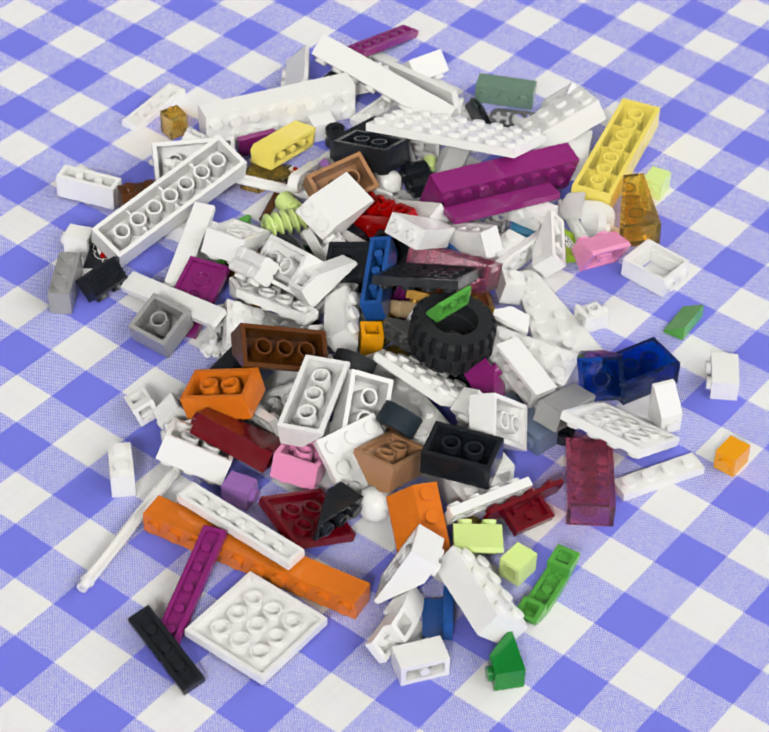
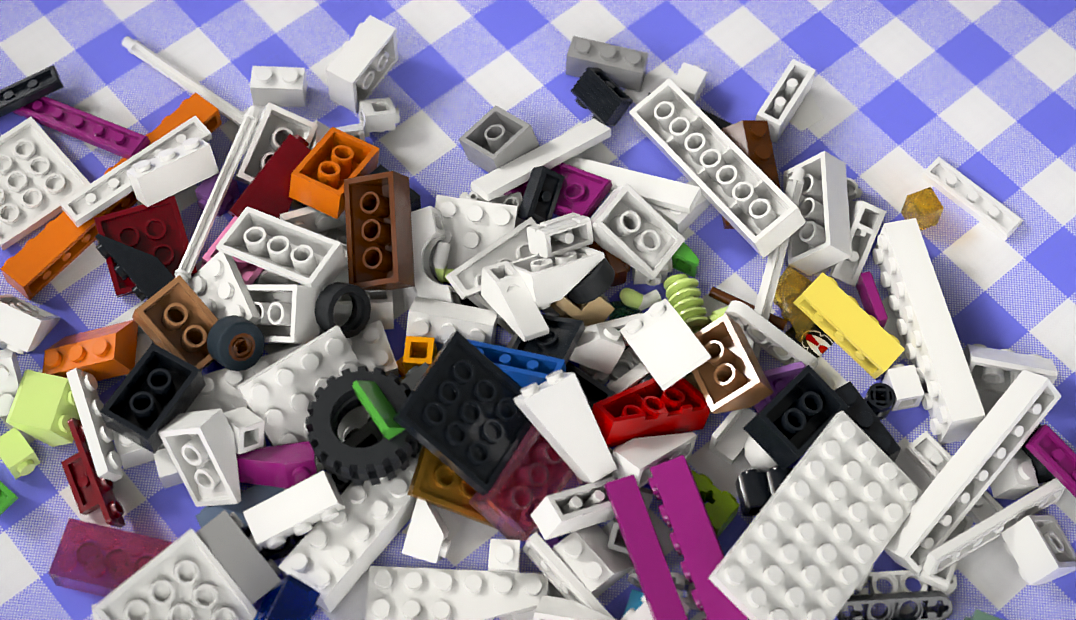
camera: 100 degrees right, 20 degrees up
(93, 413) = (362, 63): none -> white brick
(211, 290) = (541, 194): none -> black slope
(240, 495) = (172, 171): none -> white brick
(253, 471) = (218, 193): none -> white piece

